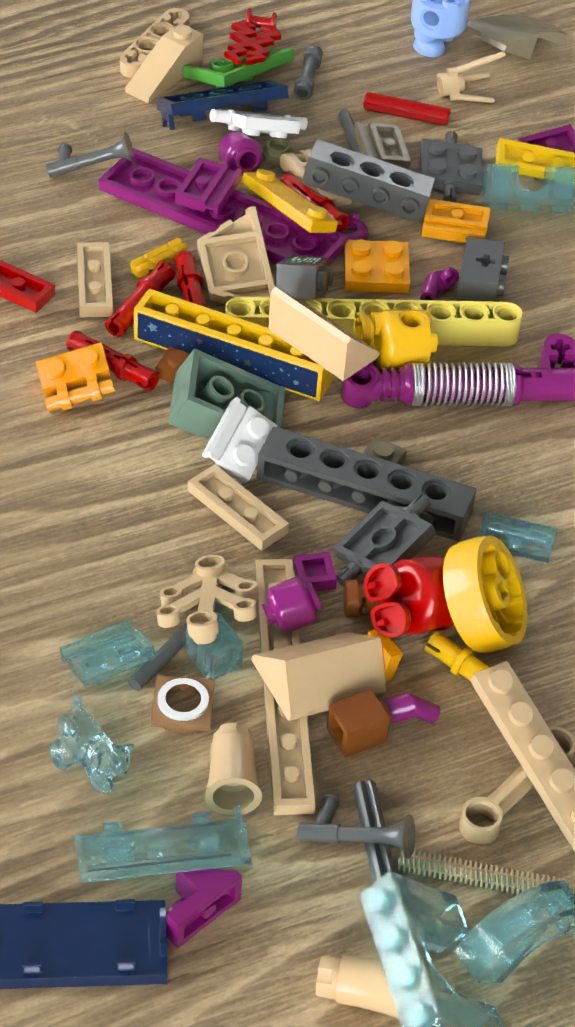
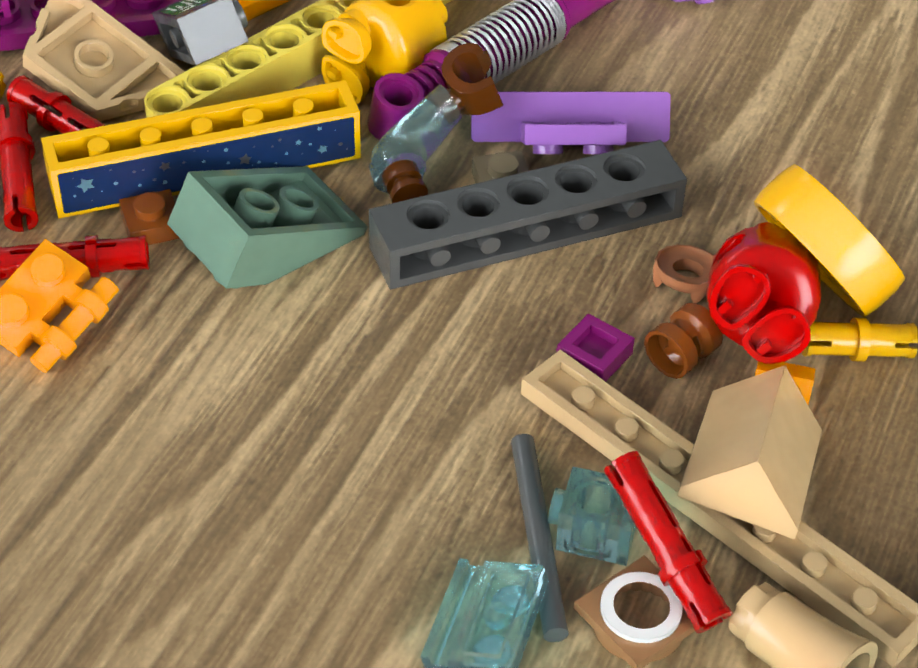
camera: 40 degrees left, 0 degrees up
(203, 624) = (488, 429): tan plant -> none
(214, 688) = (673, 552): none -> red pin
(238, 440) = (341, 253): white plate -> none
(238, 507) = (421, 333): tan plate -> none
(291, 604) = (645, 397): magenta head -> none
(318, 336) = (319, 70): slope -> none
(352, 405) = (402, 152): none -> piece
(359, 722) = (853, 485): dark orange brick -> none
(384, 537) = (635, 260): dark grey plate -> none
(409, 706) = (873, 432): magenta arm -> none
(454, 450) = (575, 118): none -> medium lavender bracket
(520, 536) = (738, 169): clear light blue panel -> none

